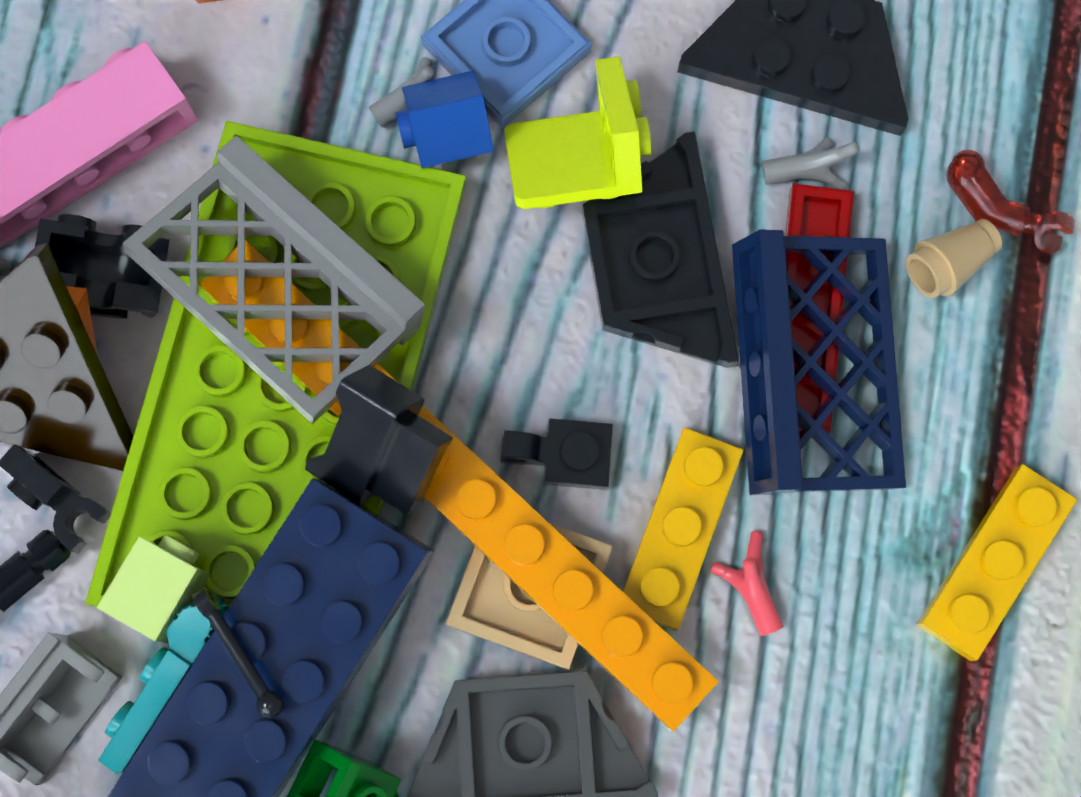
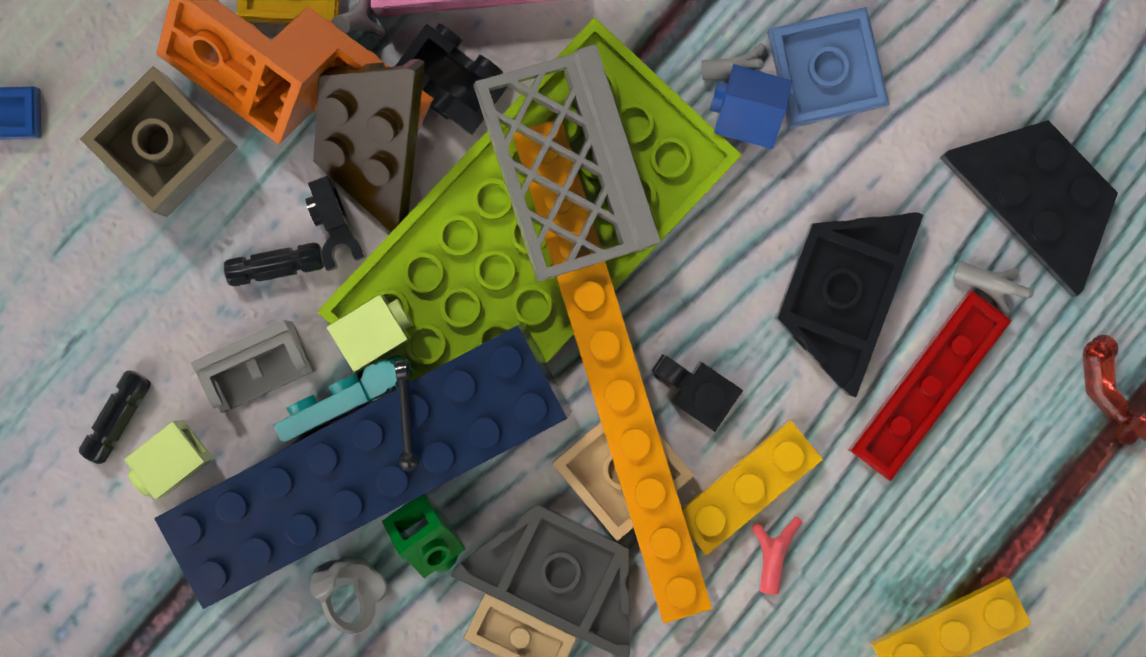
camera: 30 degrees right, 10 degrees up
(380, 443) = (576, 324): black piece -> none
(583, 152) = (834, 185): neon yellow bracket -> none
(770, 353) = (872, 421): dark blue fence -> none
(950, 259) = (1050, 408): tan cone -> none

